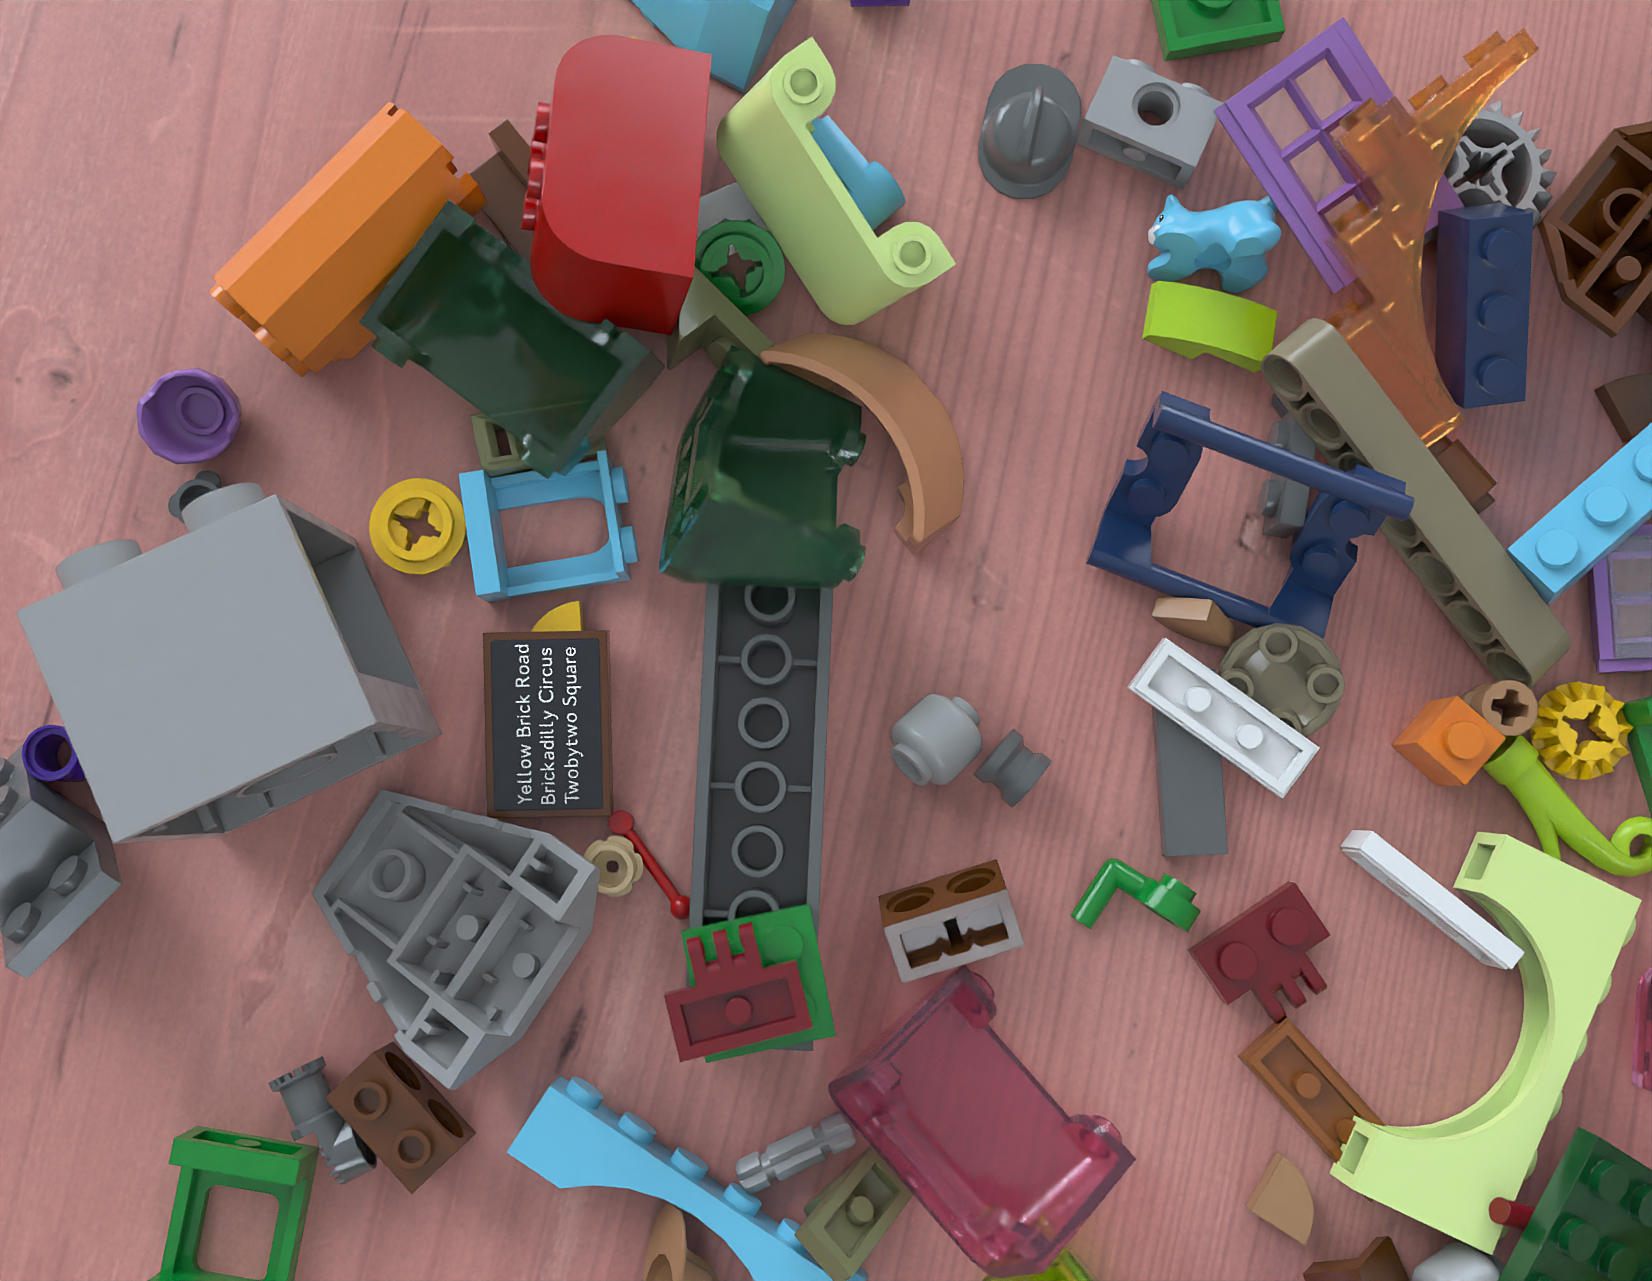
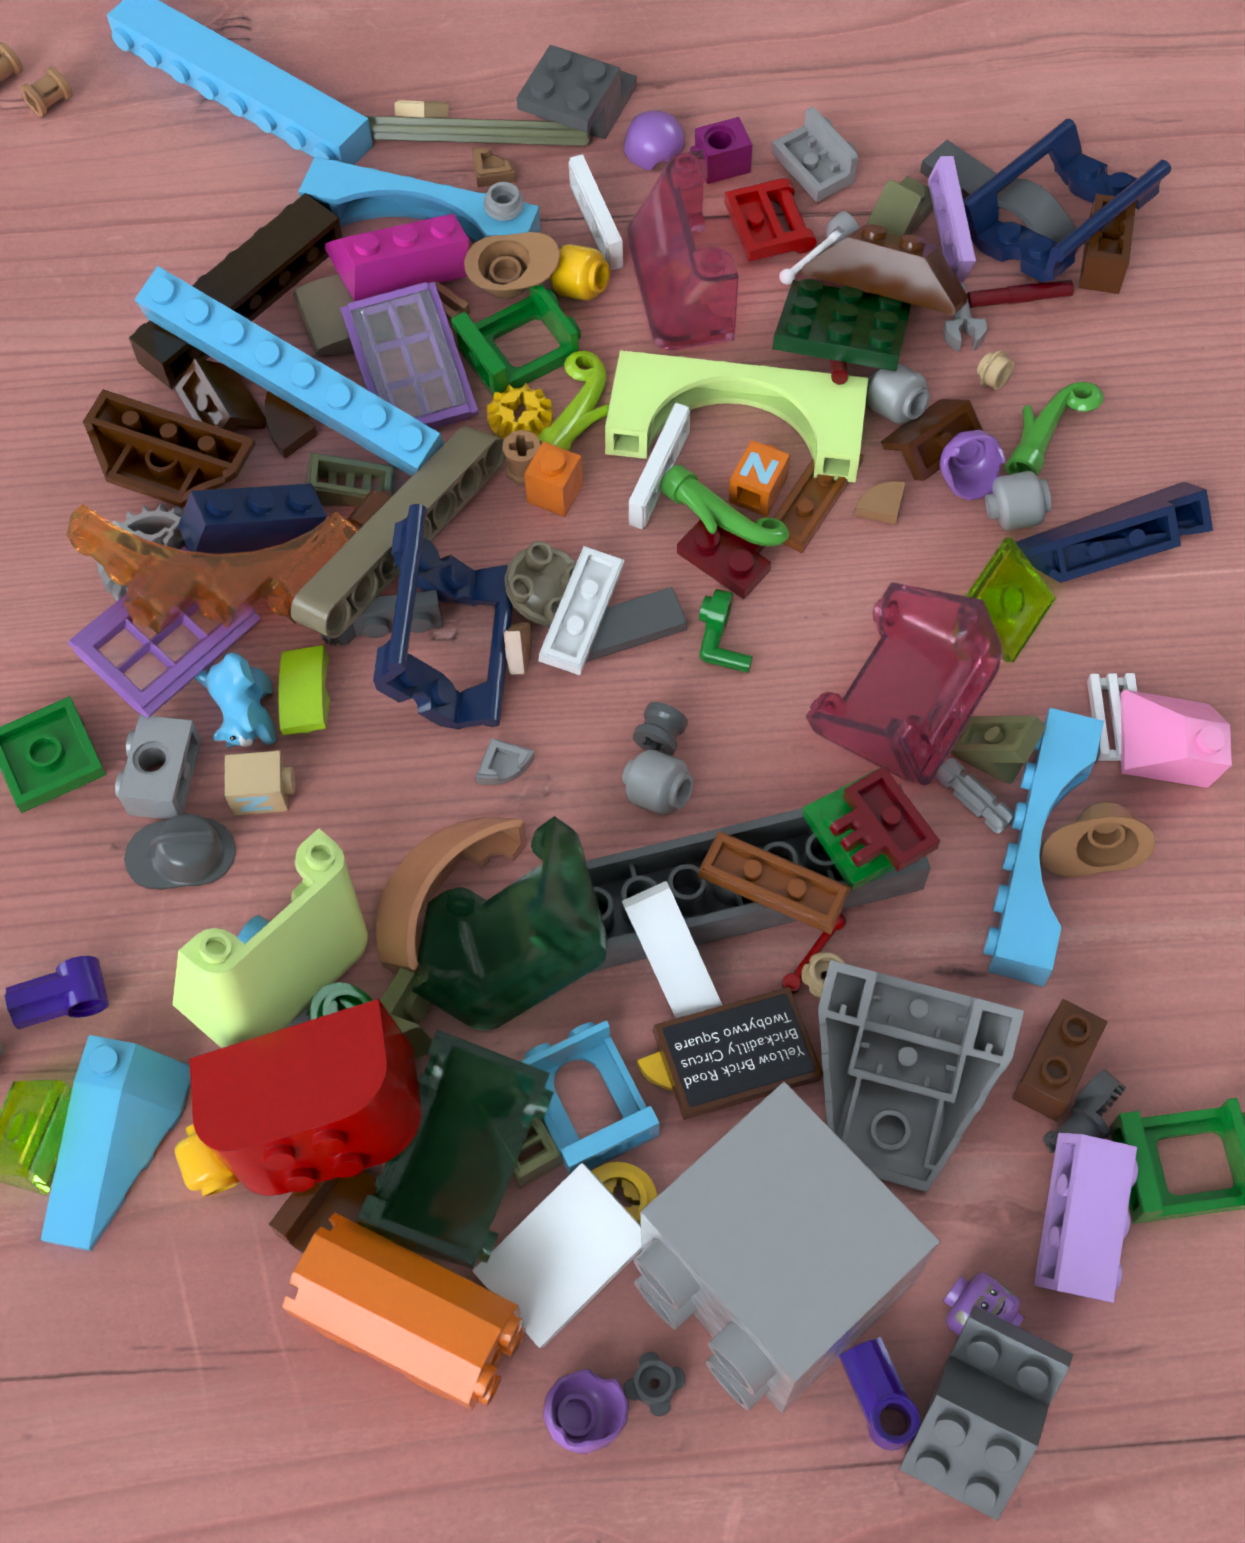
camera: 105 degrees left, 20 degrees down
(146, 904) = (984, 1293): none -> medium lavender head
(194, 1065) = (1086, 1216): none -> lavender brick
(372, 446) = (562, 1254): none -> white tile
(679, 673) = (671, 951): none -> white tile
(721, 832) = (774, 882): none -> dark orange tile
(949, 921) = (779, 734): reddish brown brick -> none
(1032, 554) = (503, 763): none -> light grey tile
(1090, 237) = (258, 782): none -> tan brick
(1371, 1035) = (759, 477): none -> orange brick
(1385, 920) = (683, 487): none -> bright green plant
(1555, 450) = (338, 467): none -> olive slope

